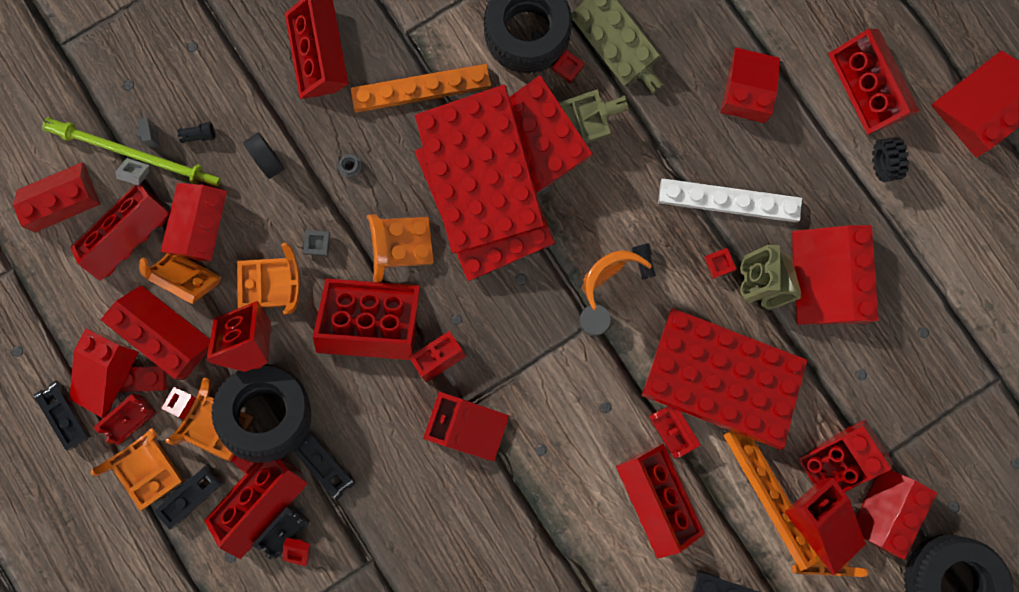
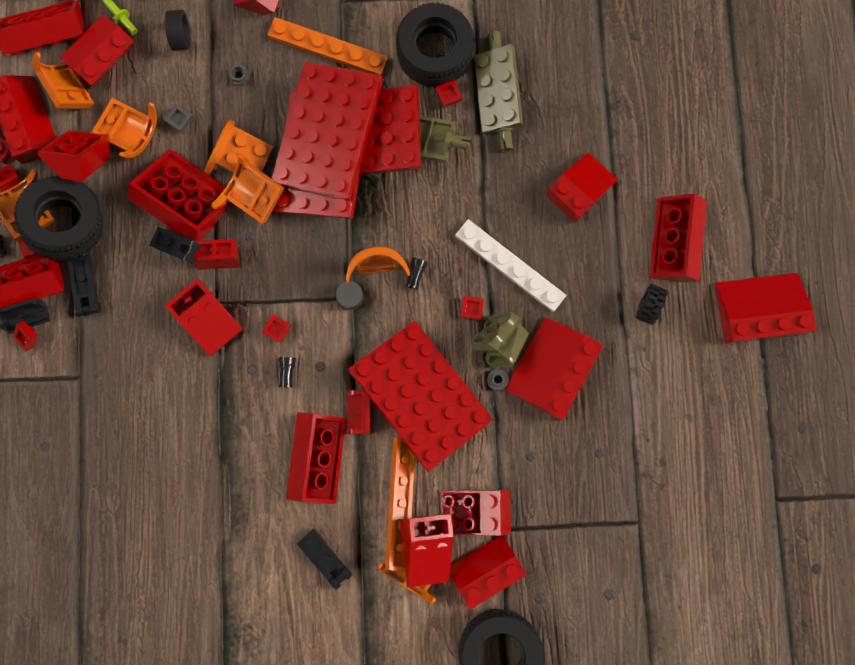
camera: 25 degrees right, 0 degrees up
(393, 372) = (175, 245): none -> black plate
(436, 274) = (250, 191): none -> orange piece
(542, 395) = (276, 328): none -> red plate
(576, 428) = (286, 367): none -> black pin
(781, 323) = (490, 379): none -> dark grey plate

